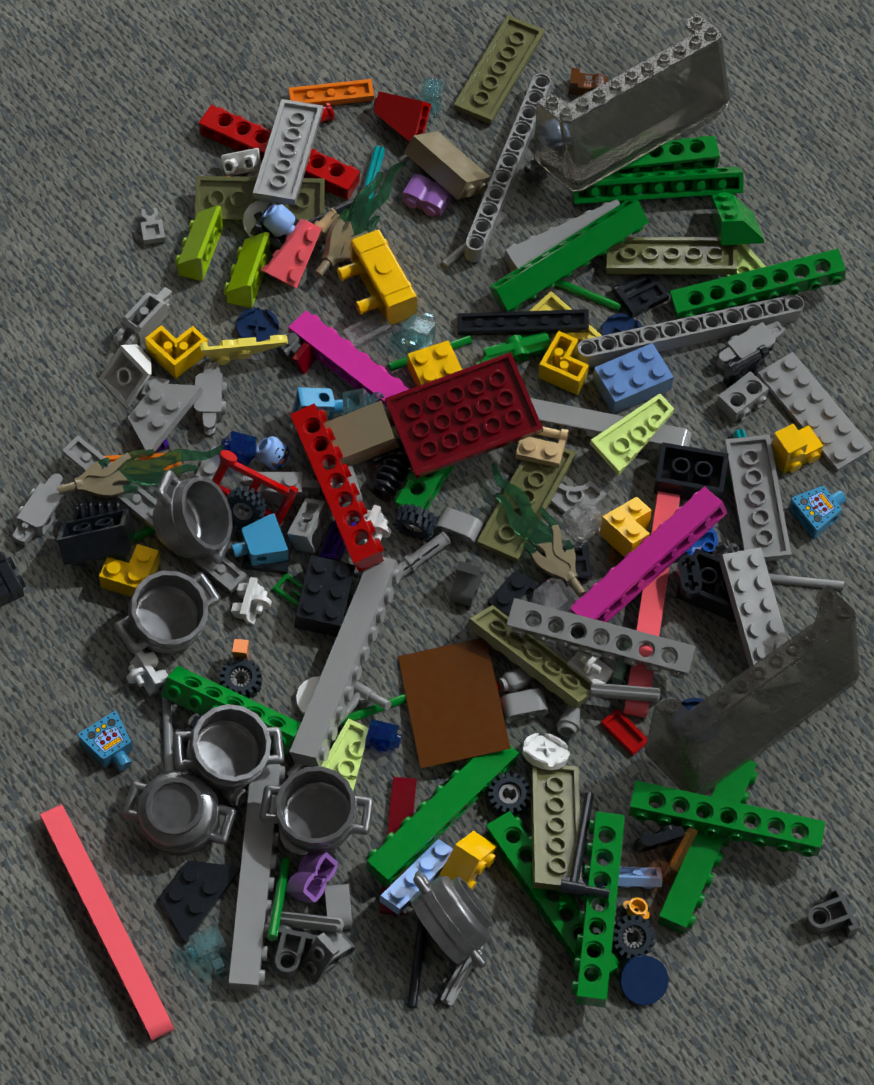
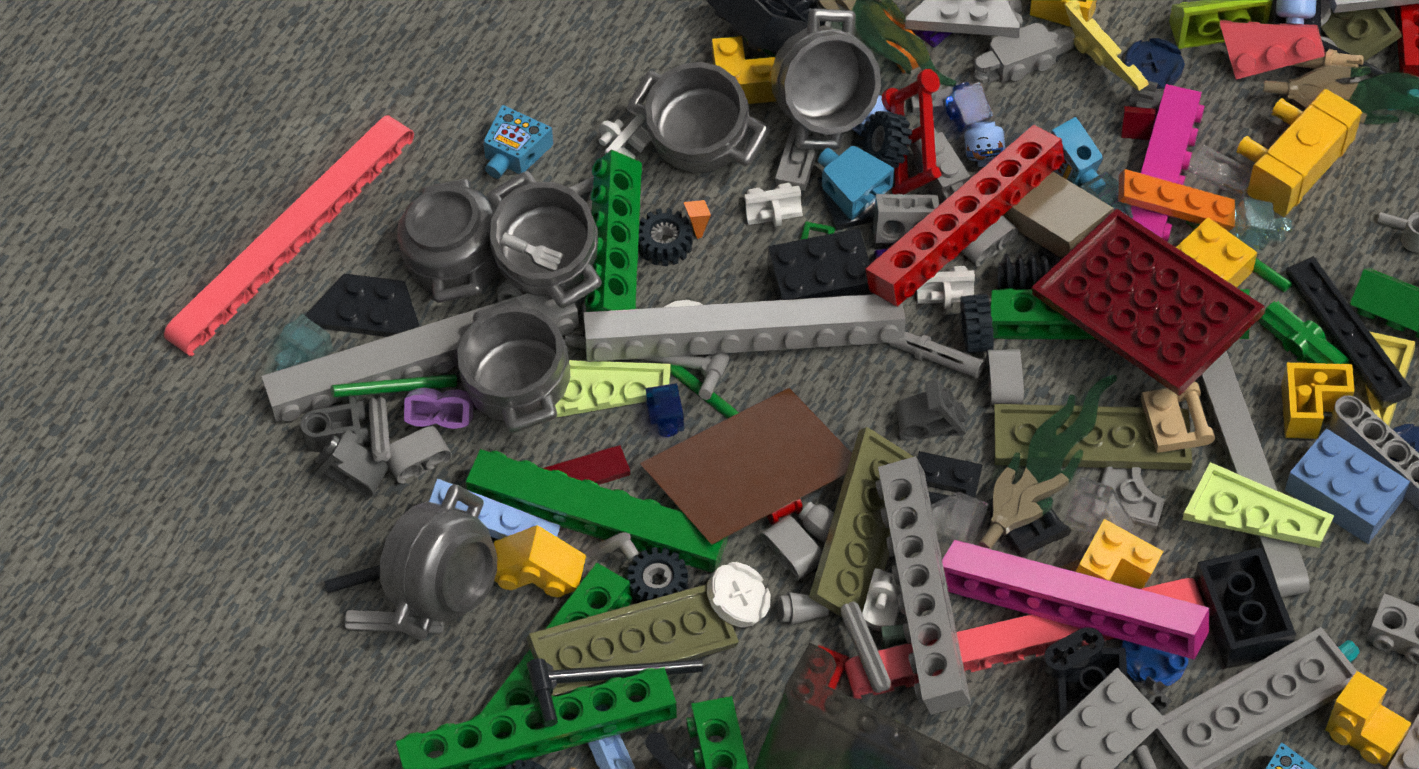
camera: 70 degrees right, 5 degrees down
(246, 754) = (540, 255): none -> light grey piece
(384, 365) = (1175, 199): none -> orange plate
(472, 810) = (609, 545): none -> light grey bar

